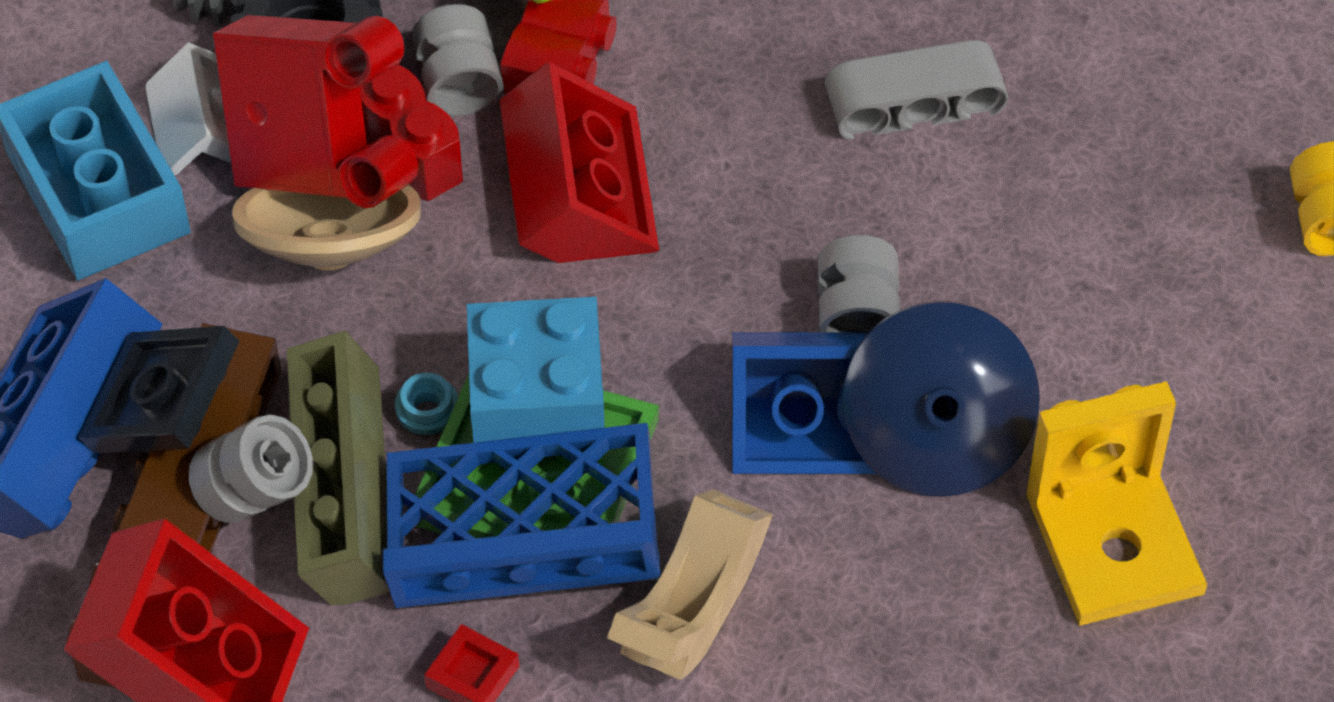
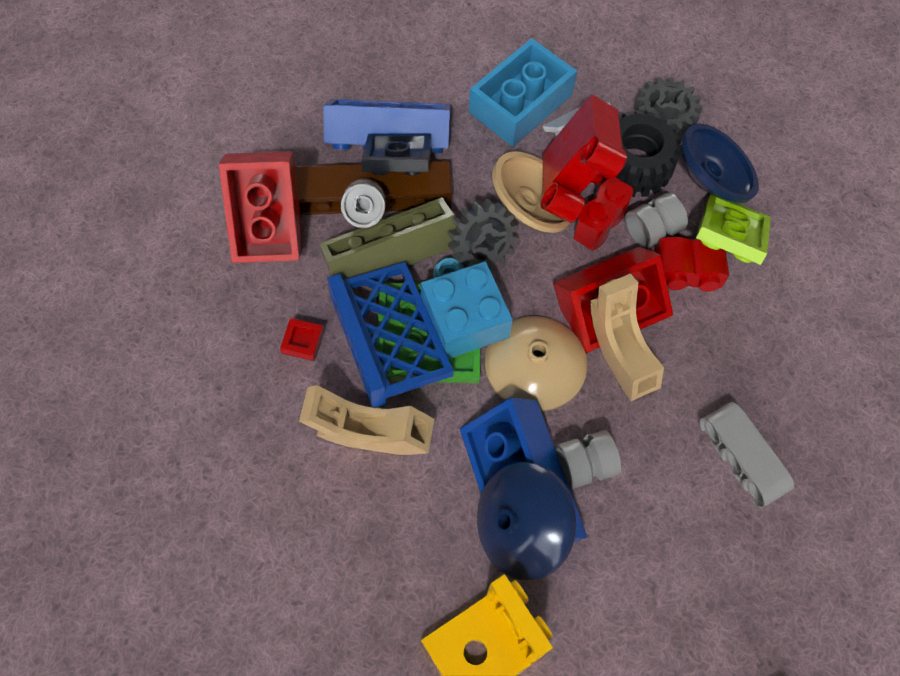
camera: 70 degrees right, 10 degrees up
(390, 313) = (480, 235): none -> dark grey gear
(664, 349) = (548, 379): none -> tan dish
(672, 182) = (622, 340): none -> tan arch

